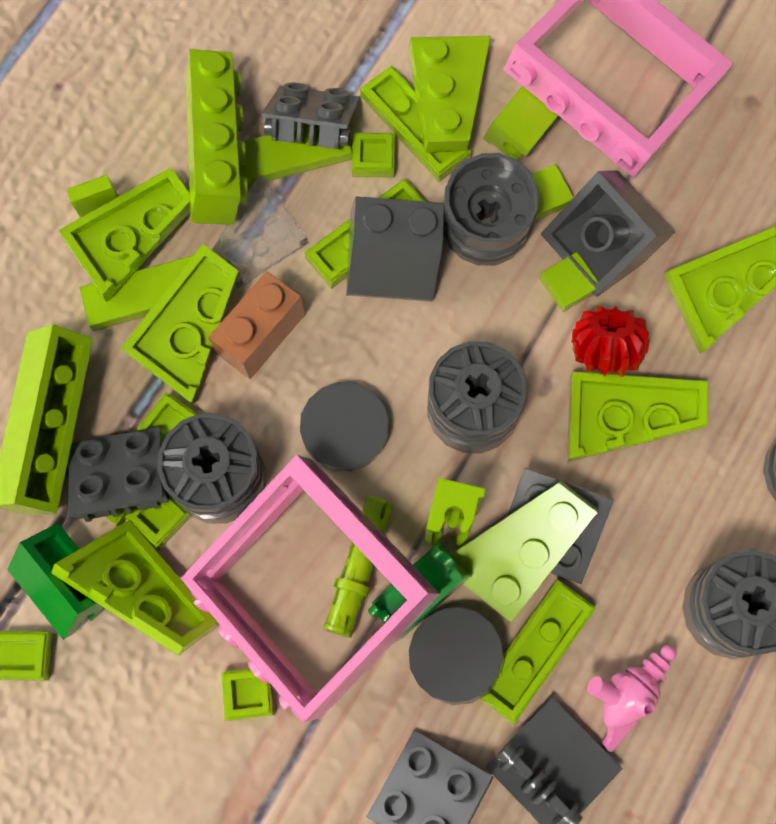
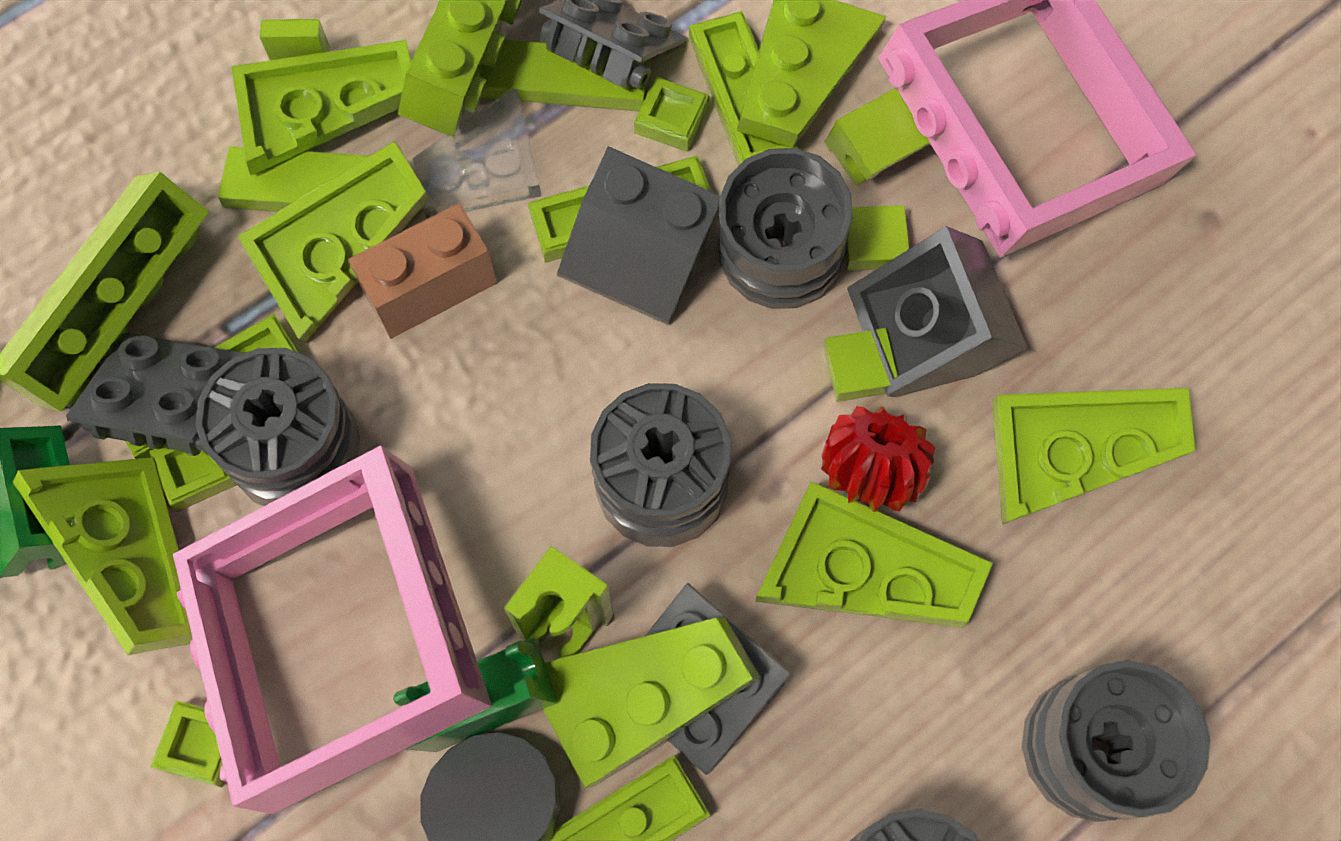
camera: 20 degrees right, 5 degrees down
(344, 426) = (480, 442): dark grey tile -> none
(353, 582) = (397, 650): lime pin -> none

